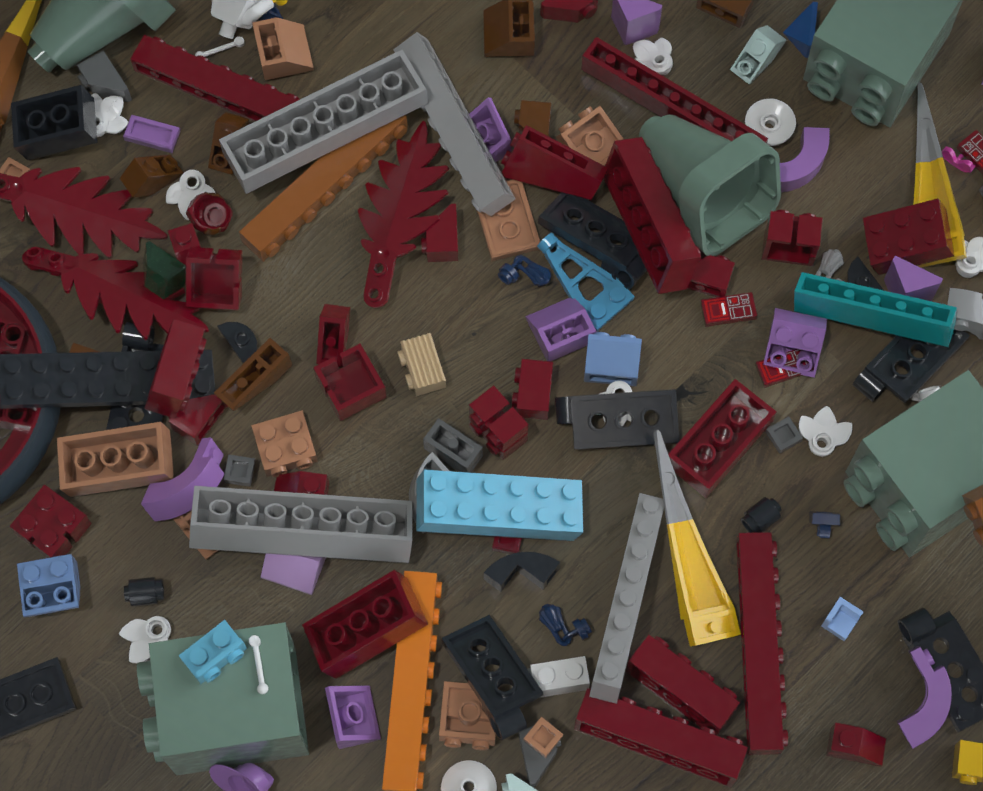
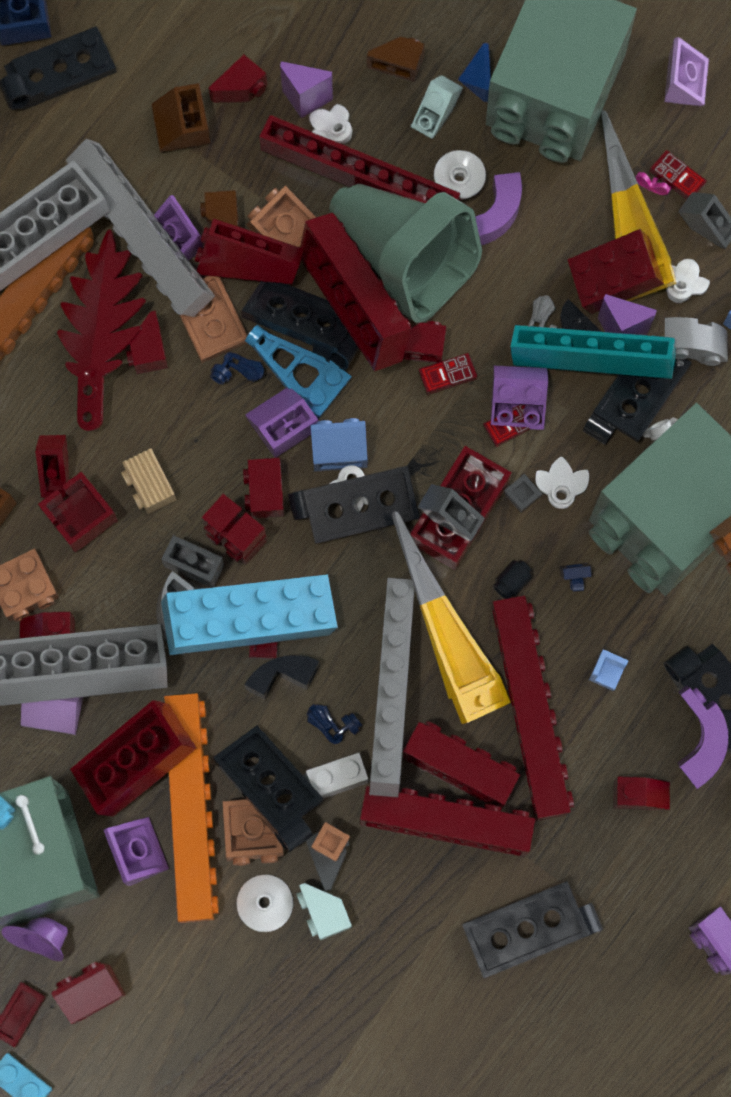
camera: 10 degrees left, 5 degrees up
(712, 438) = (451, 511): none -> dark grey slope
(792, 238) = (499, 291): dark red piece -> none

